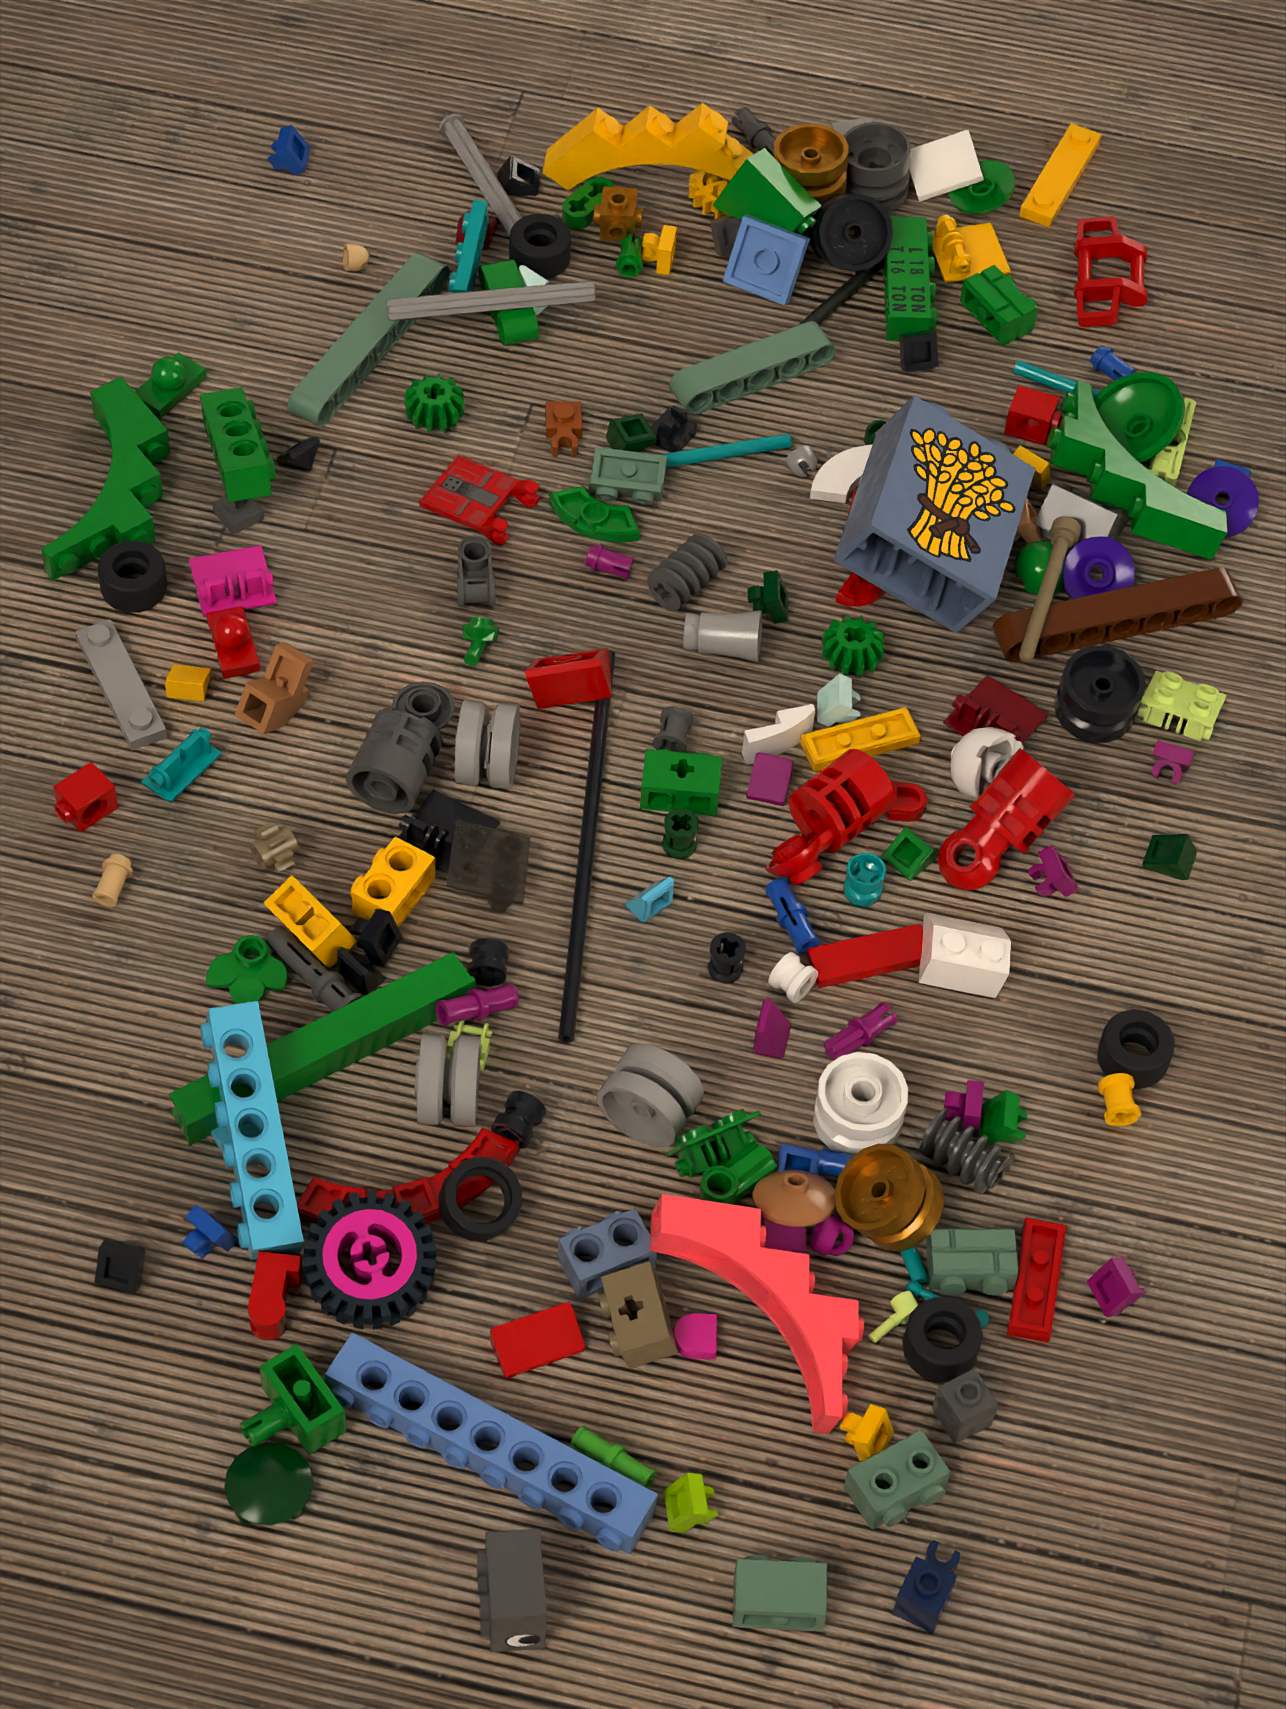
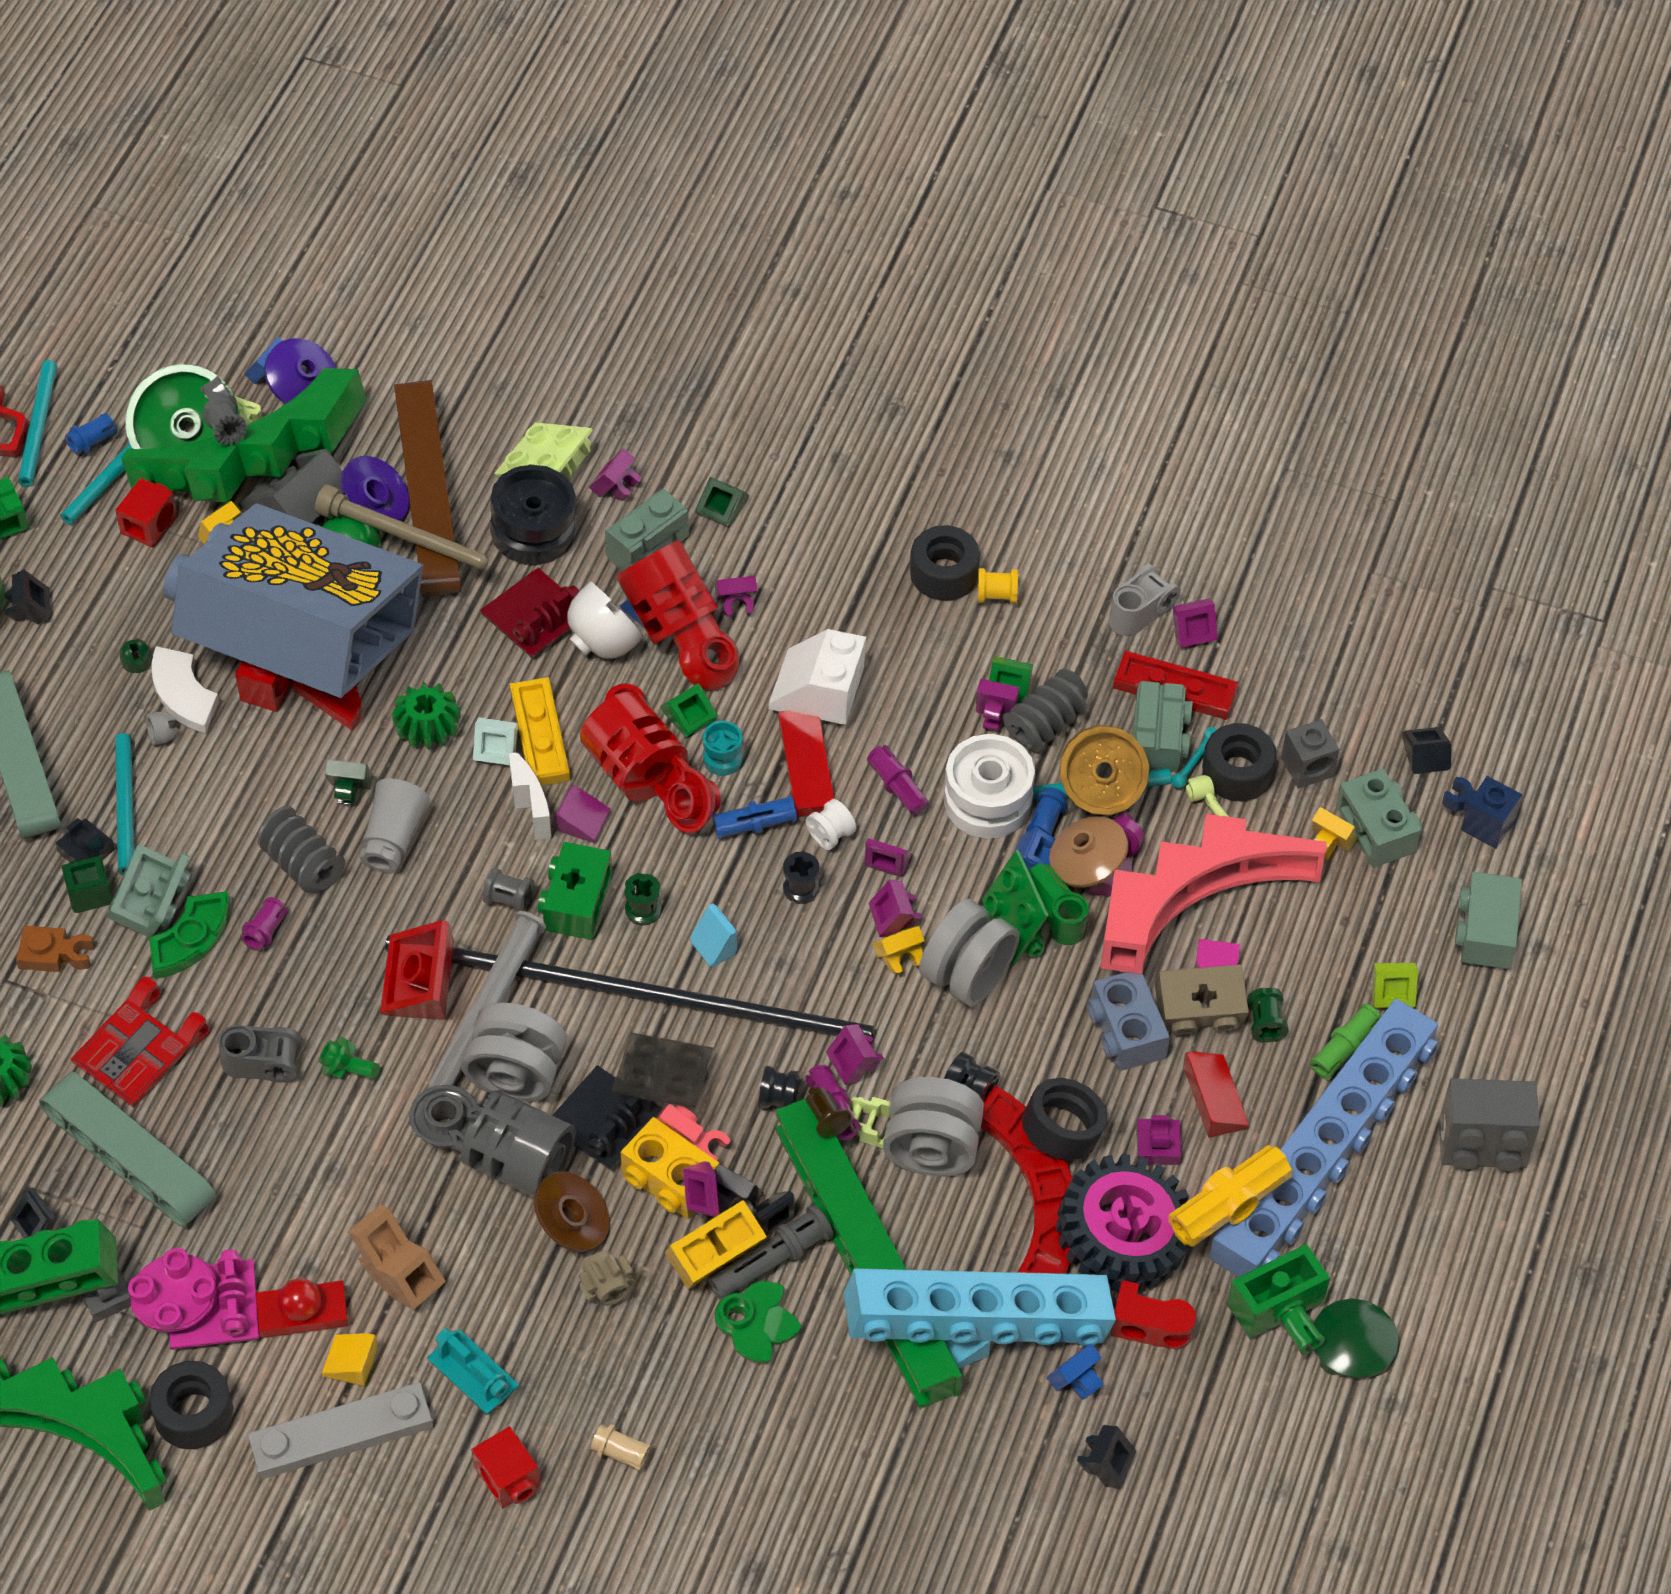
camera: 80 degrees left, 0 degrees up
(233, 546) = (173, 1291): none -> dark pink dish
(357, 898) = (701, 1188): none -> magenta slope
(359, 817) = (571, 1211): none -> reddish brown dish
(369, 501) = (127, 1149): none -> sand green beam
(391, 1336) = (1230, 1195): none -> yellow piece
(430, 895) = (684, 1123): none -> coral plate
(447, 985) = (830, 1117): none -> dark brown piece
(476, 1294) = (1159, 1140): none -> magenta tile
(534, 1018) = (853, 1054): none -> magenta tile
(573, 732) = (491, 992): none -> light grey axle
(633, 1382) = (1267, 1015): none -> dark green bush
(662, 1037) = (900, 943): none -> yellow tile
(705, 1037) = (893, 908): none -> magenta tile
(1006, 1534) = (1427, 750): none -> black slope
(1105, 790) = (646, 529): none -> sand green brick
(1117, 330) = (37, 423): none -> teal piece
(1136, 1235) = (1141, 601): none -> light grey piece
(1137, 424) = (221, 413): none -> dark grey connector

